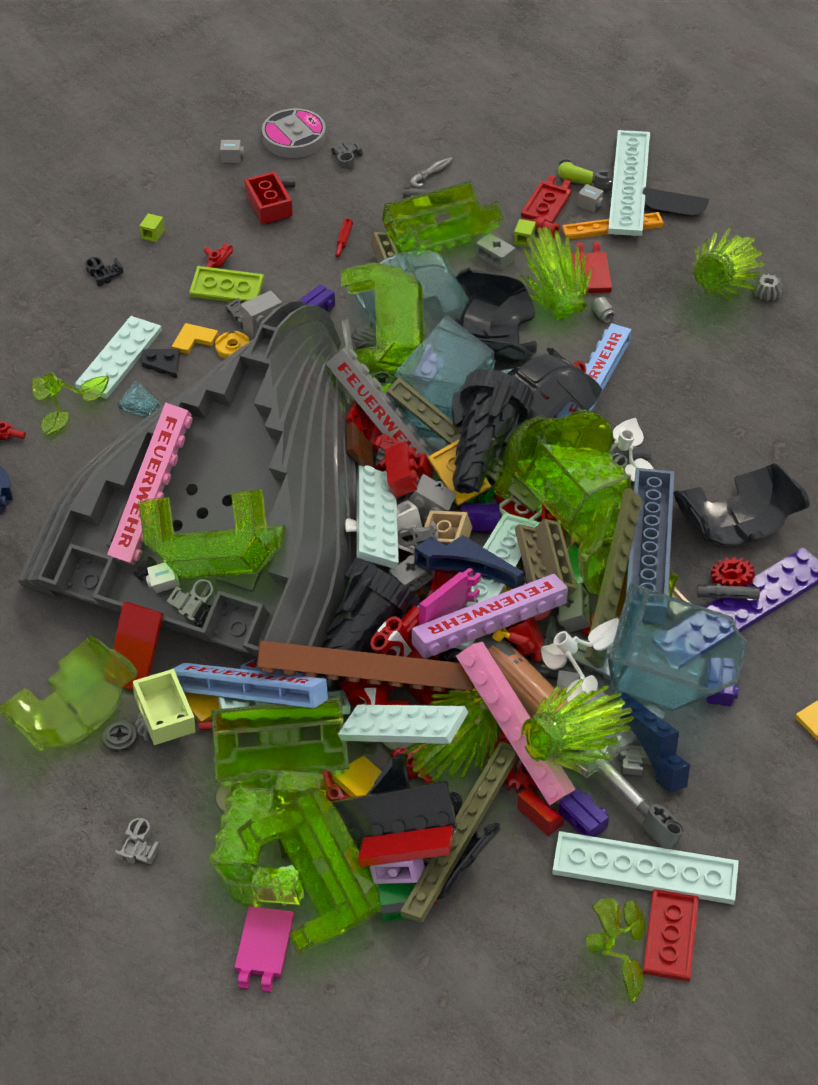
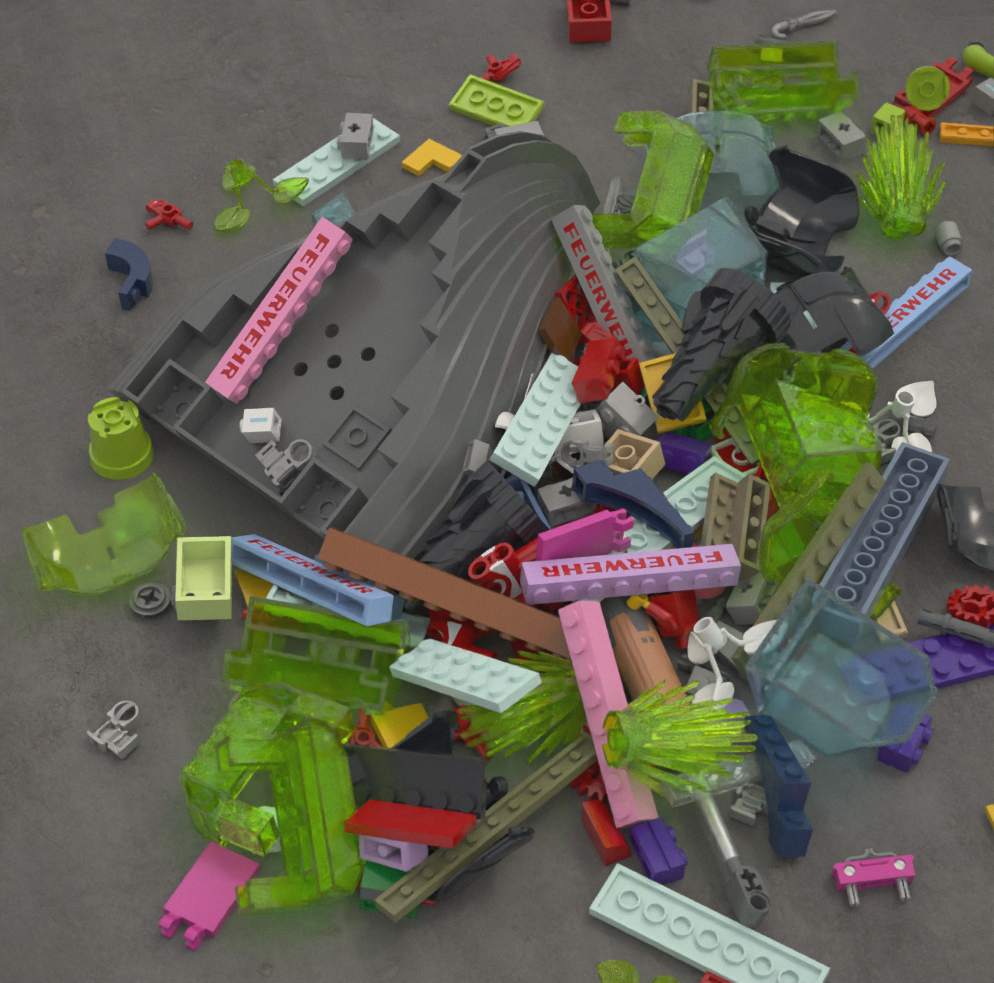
camera: 20 degrees right, 0 degrees up
(43, 619) = (118, 440): none -> lime piece
(102, 273) = (357, 58): black piece -> none
(130, 334) = (356, 136): none -> light grey brick
(138, 637) = (206, 491): red tile -> none
(142, 569) = (238, 415): black piece -> none
(152, 227) = (437, 18): lime brick -> none
(161, 360) = (384, 175): black wing -> none
(214, 551) = (344, 414): clear neon green wedge -> none
(321, 297) = (594, 148): dark purple brick -> none
(341, 559) = (476, 455): none -> light grey piece
(343, 236) = (662, 77): red axle -> none
(546, 201) = (927, 88): none -> lime tile
(597, 260) = (961, 185): tile -> none
(739, 784) = (874, 873): none -> dark pink piece

